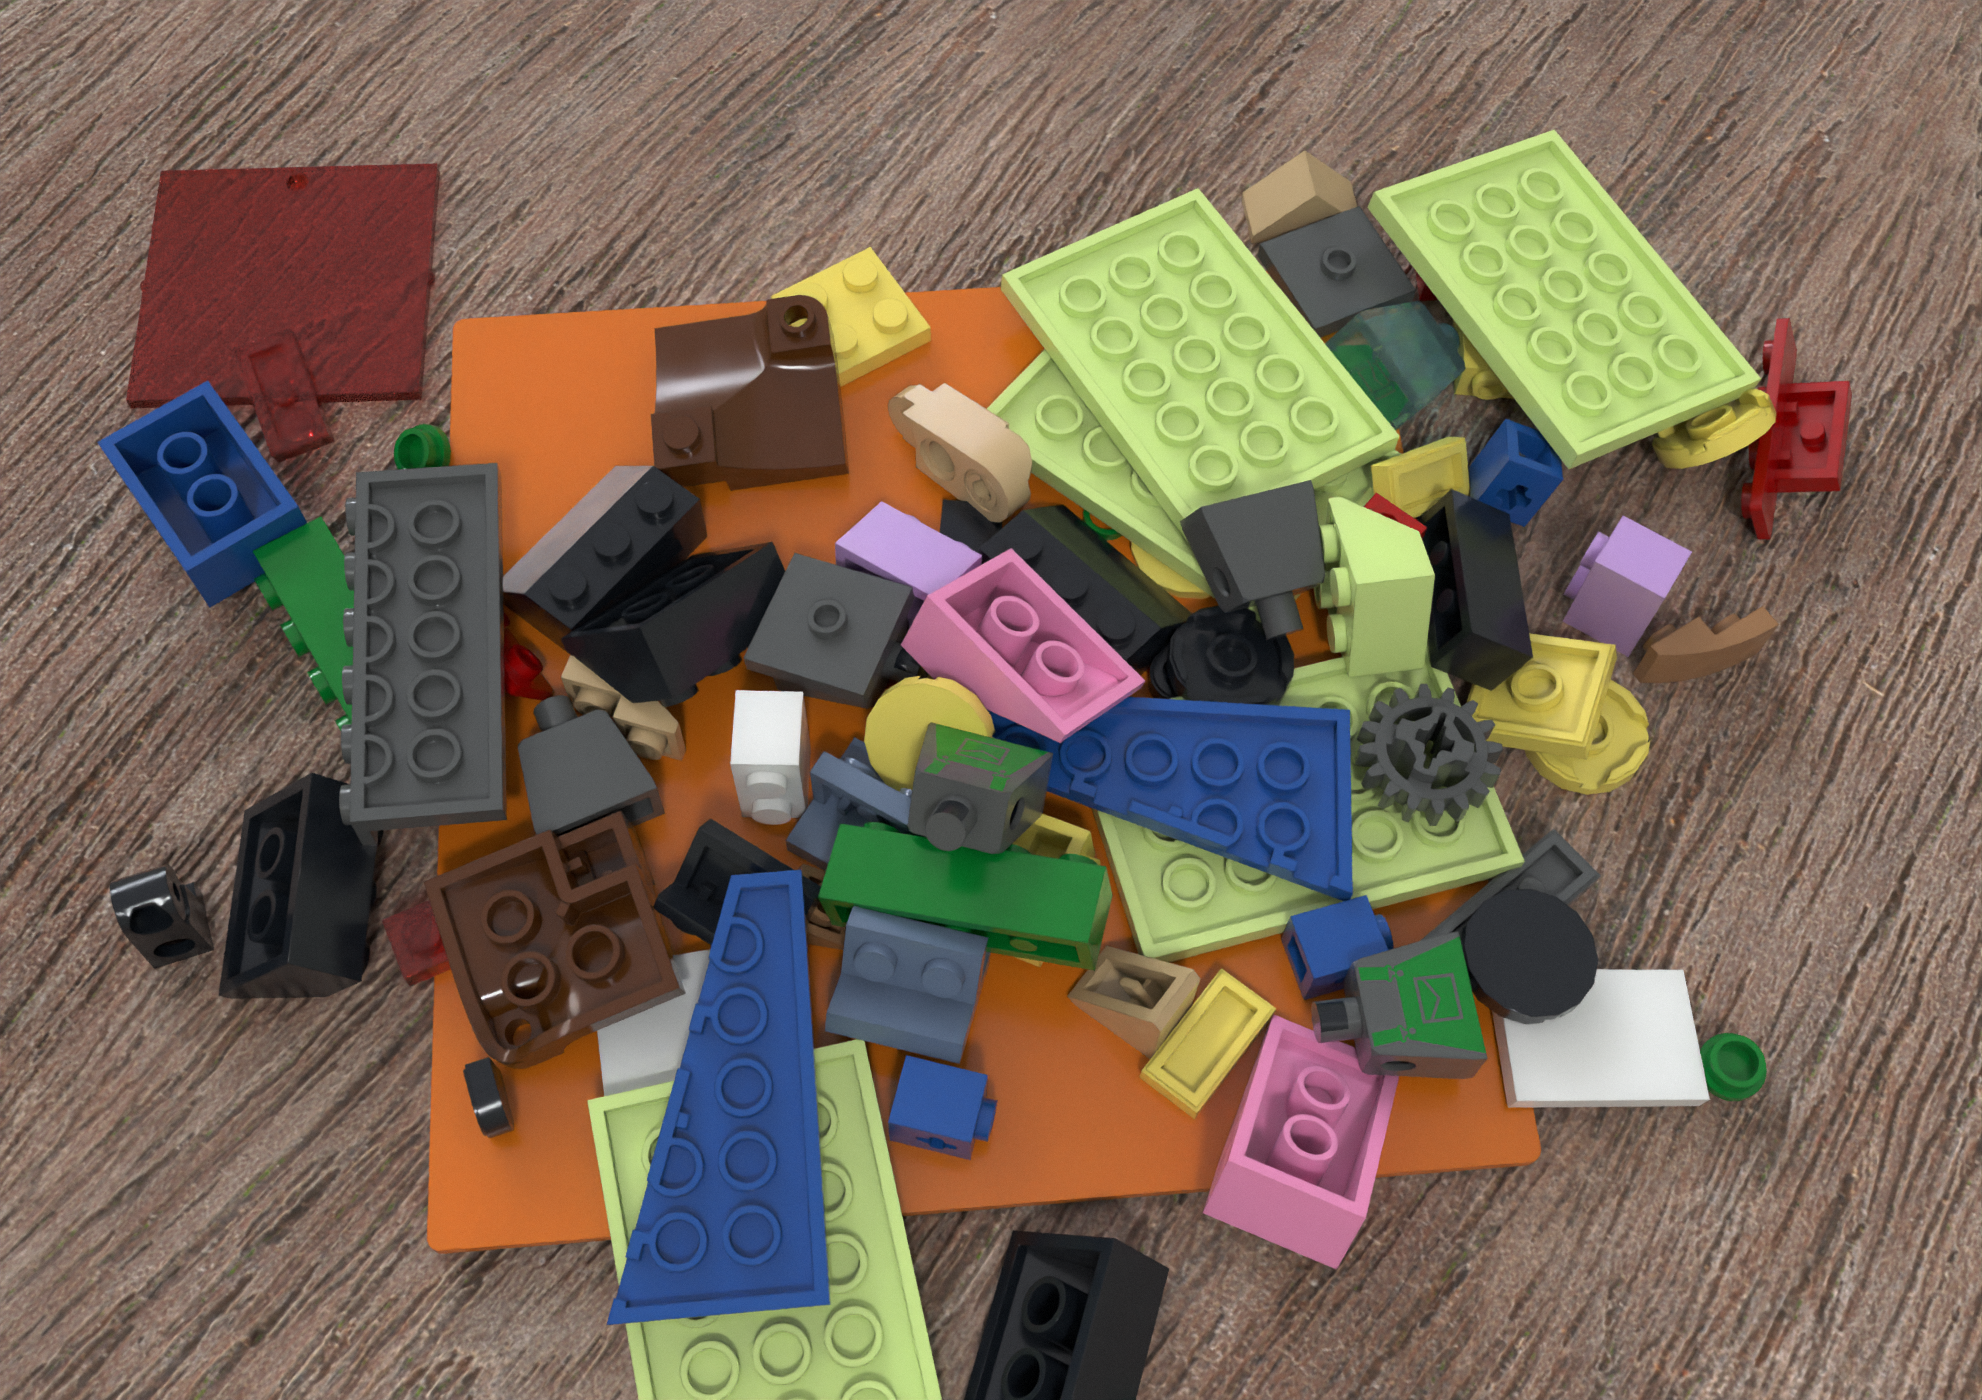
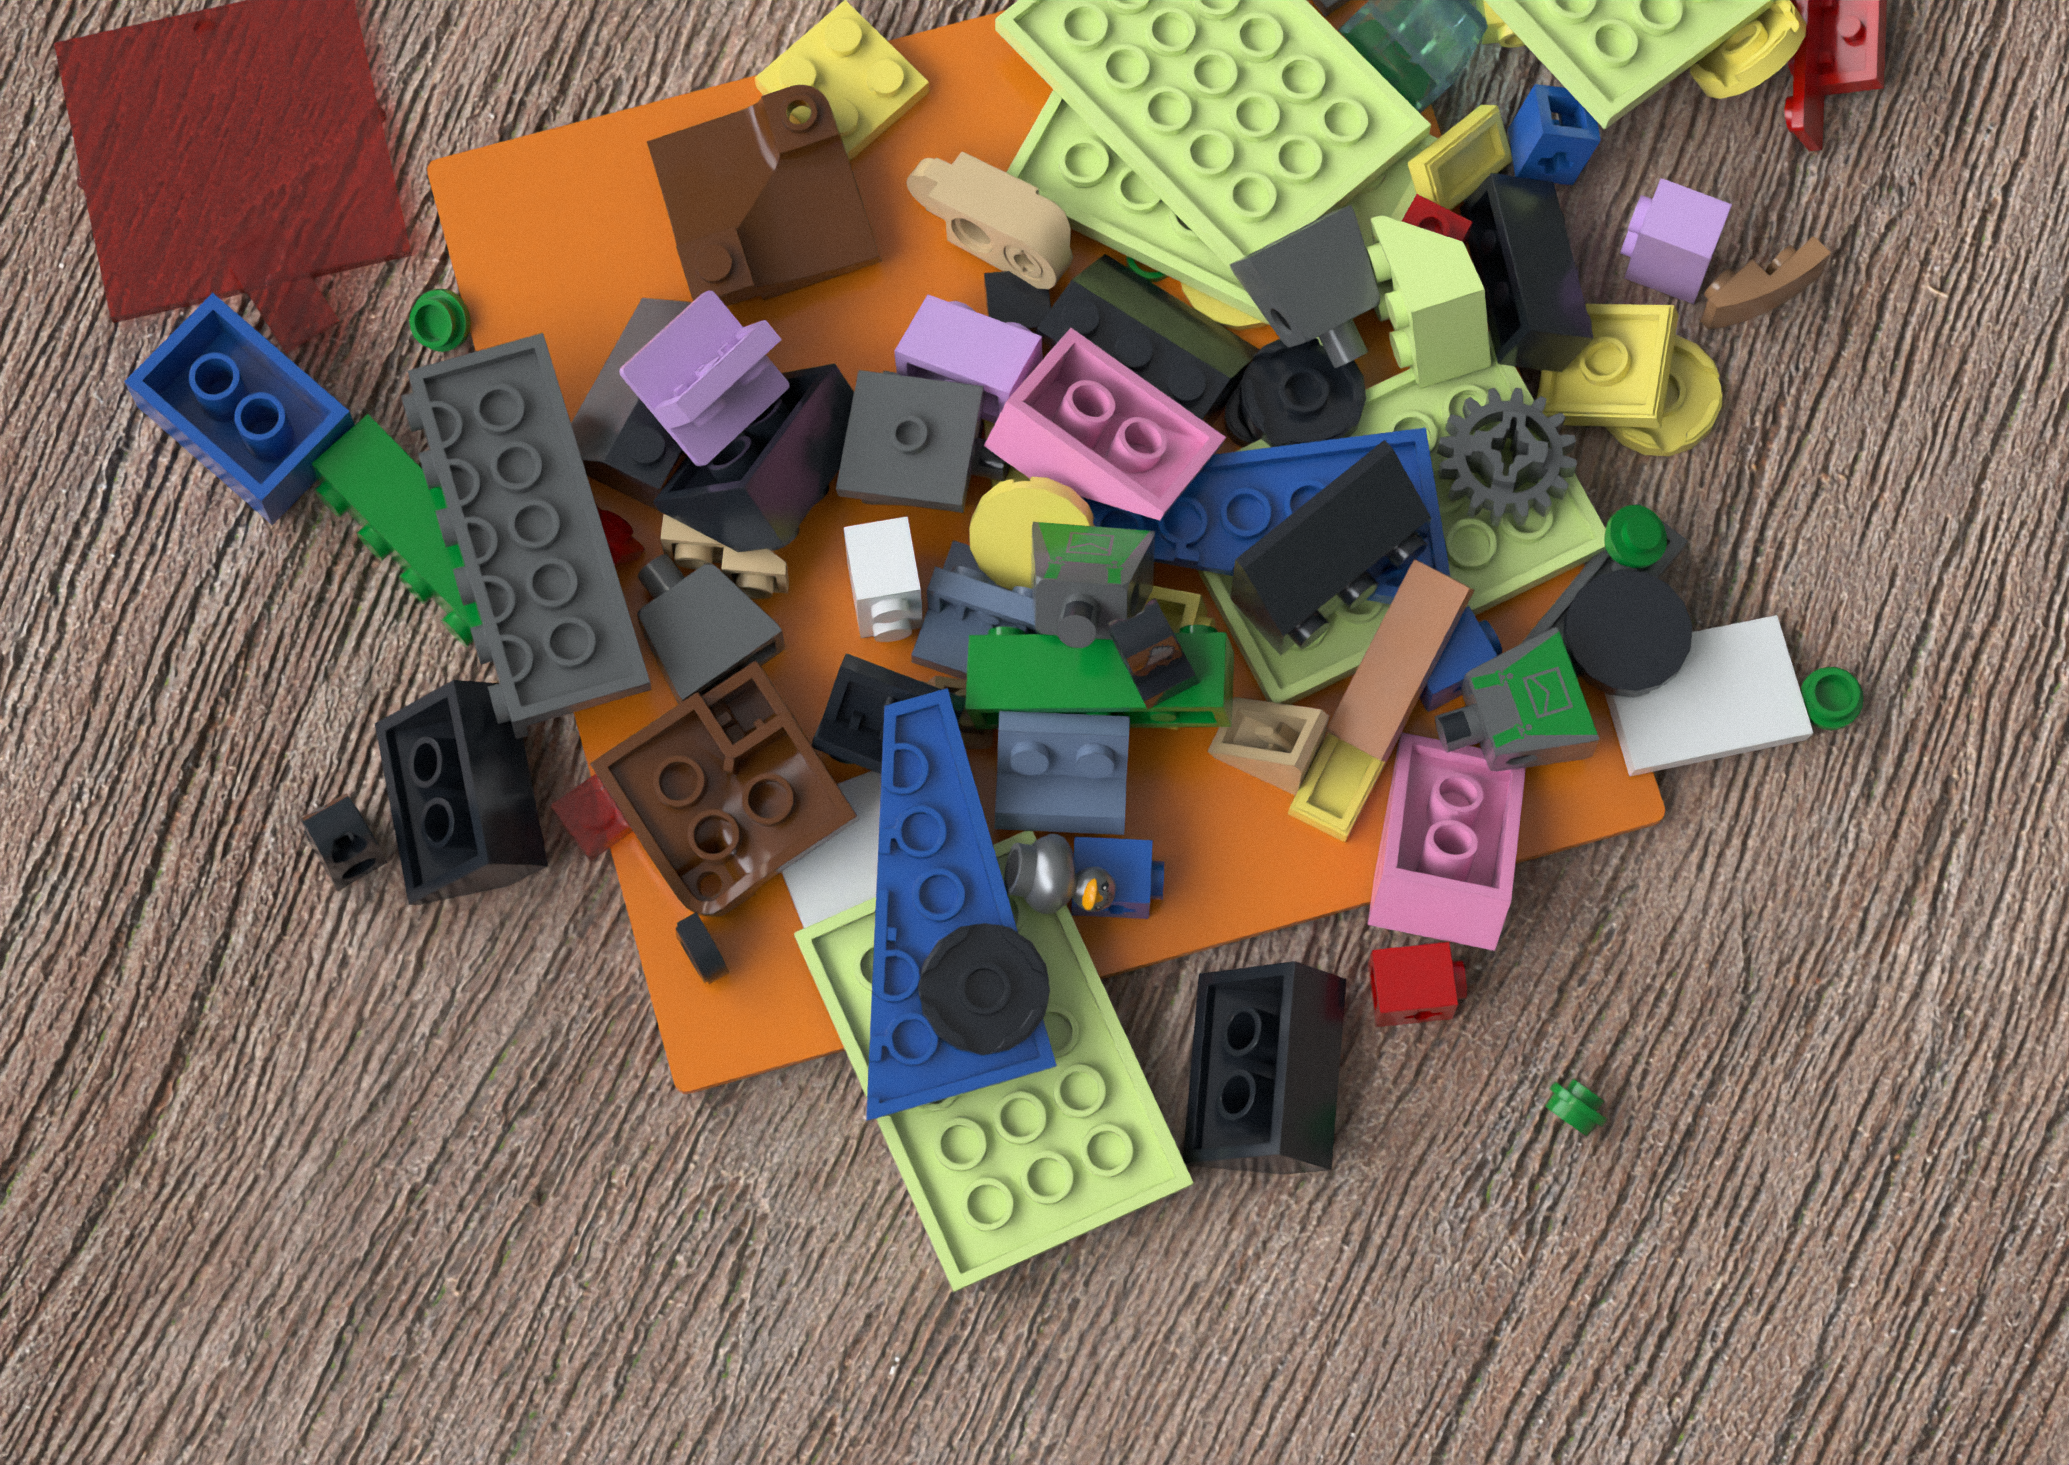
camera: 10 degrees left, 10 degrees up
(640, 528) = (706, 376): none -> lavender bracket
(766, 1202) = (984, 989): none -> black tile
(864, 1094) = (1048, 878): none -> flat silver animal
(1021, 870) = (1152, 655): none -> black leg
(1232, 804) = (1331, 551): none -> black slope
(1243, 1289) = (1415, 984): none -> red brick
(1285, 936) = (1400, 660): none -> nougat tile
(1549, 859) = (1635, 537): none -> green plate

